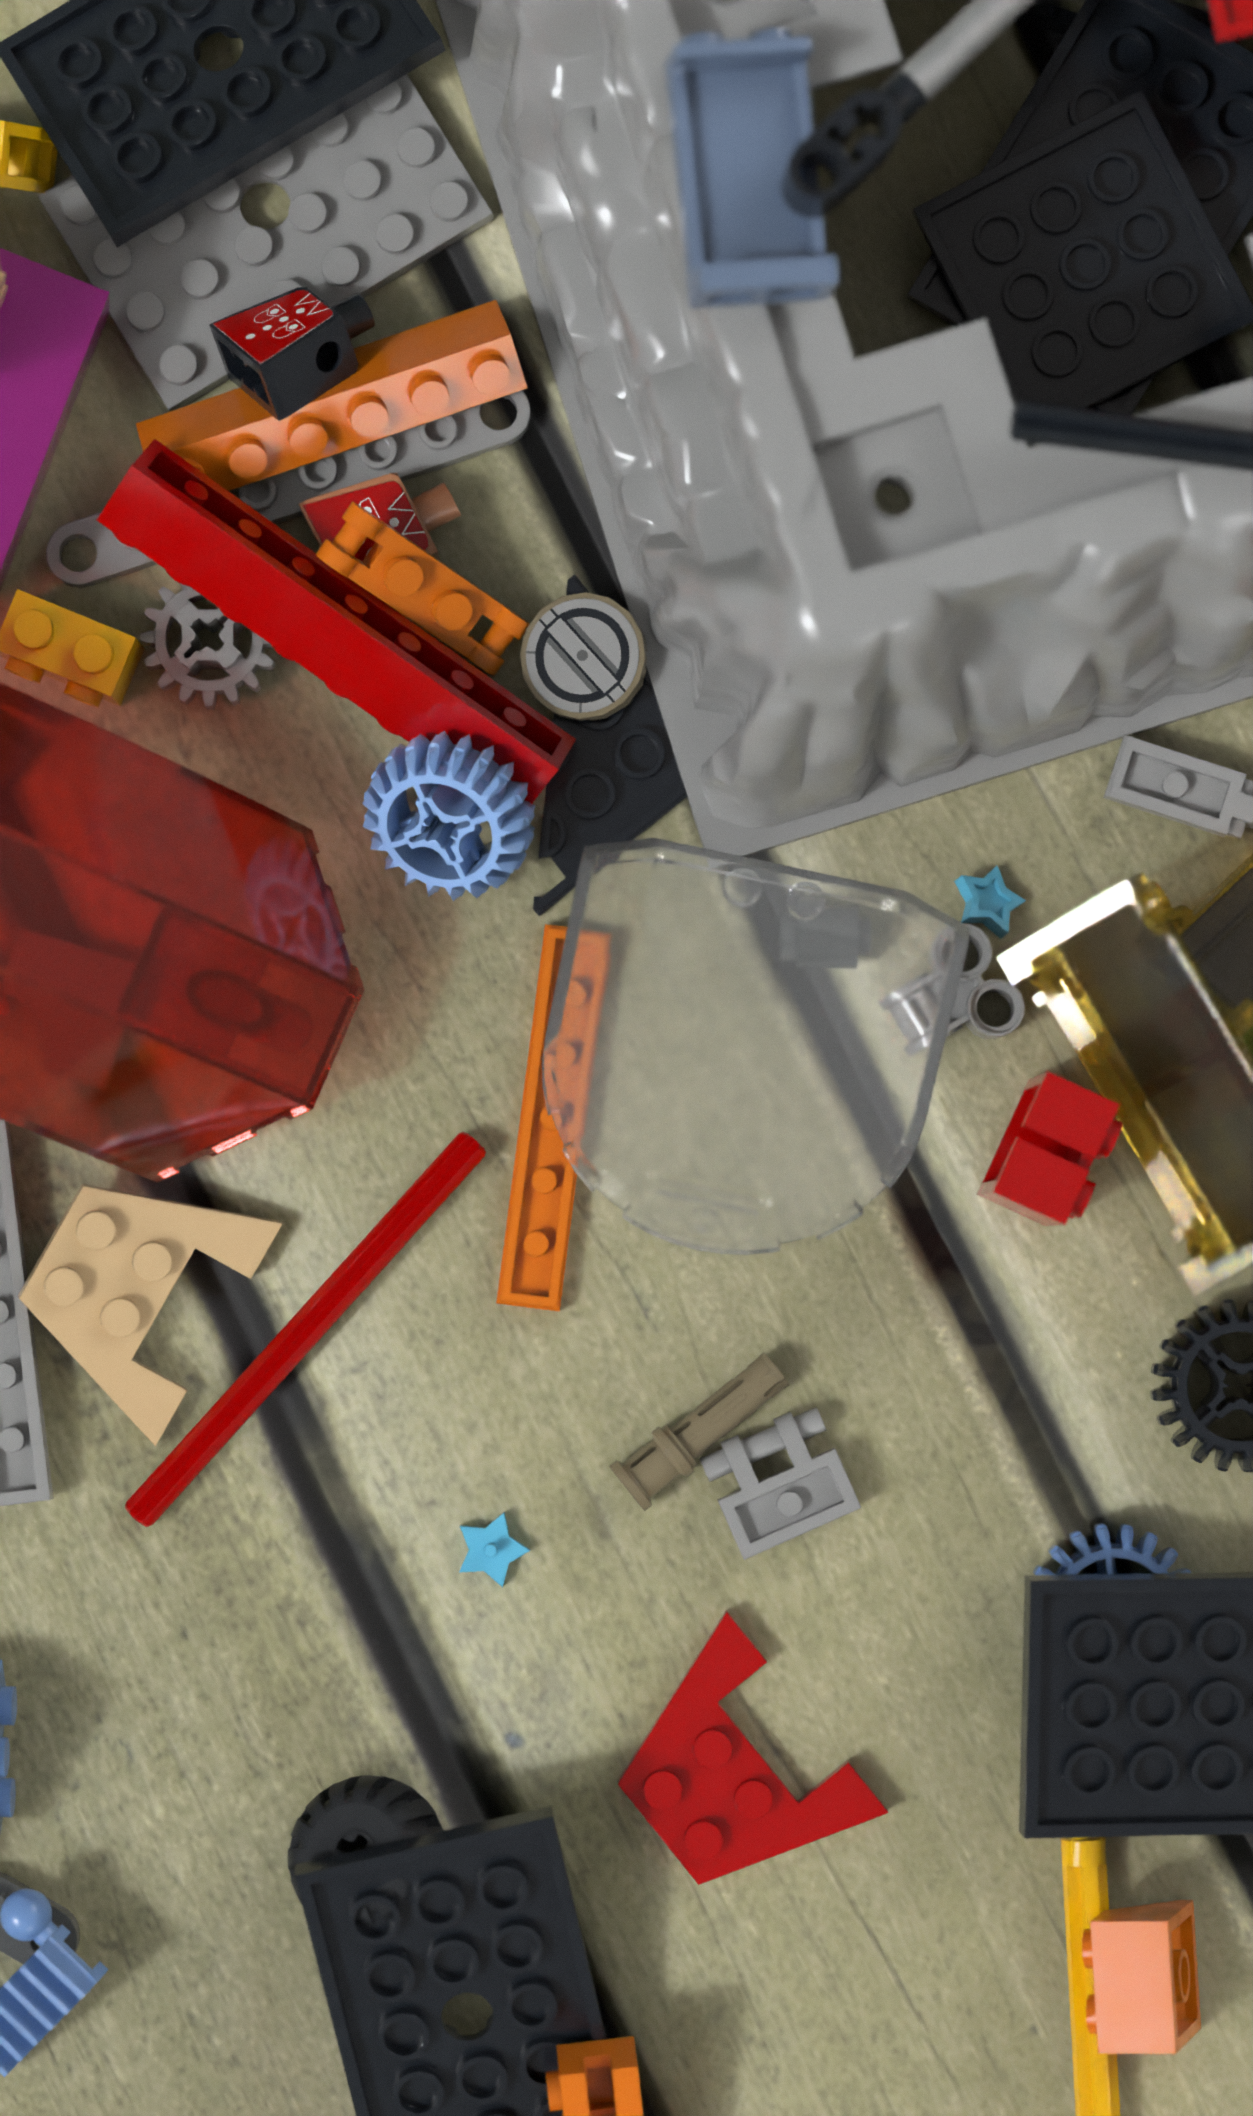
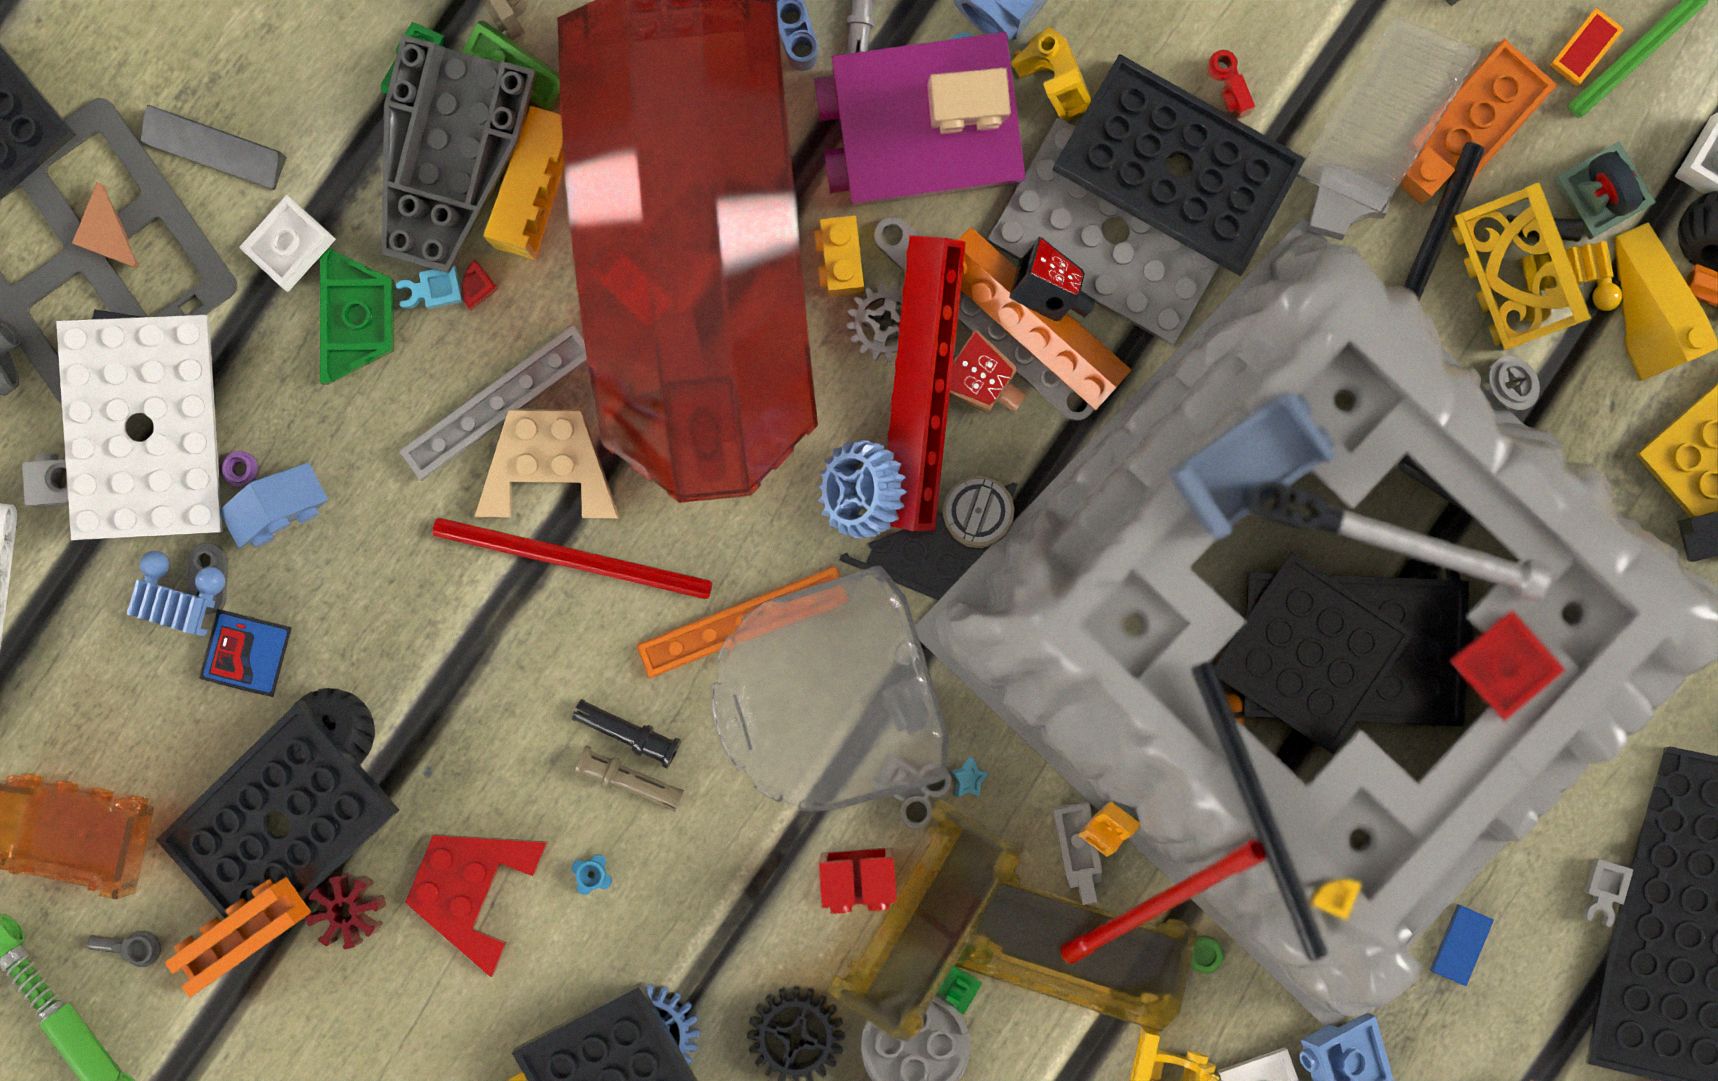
camera: 65 degrees right, 0 degrees up
(168, 1924) = (245, 652): none -> slope
(422, 588) = (966, 413): orange plate -> none
(491, 1549) = (514, 709): medium azure piece -> none
(650, 1373) = (643, 739): none -> black pin
(652, 2002) = (334, 912): none -> dark red gear
(788, 1501) = (618, 844): light grey plate -> none
(826, 1583) = (585, 883): none -> dark azure plate
(1185, 722) = (1109, 829): none -> light orange slope

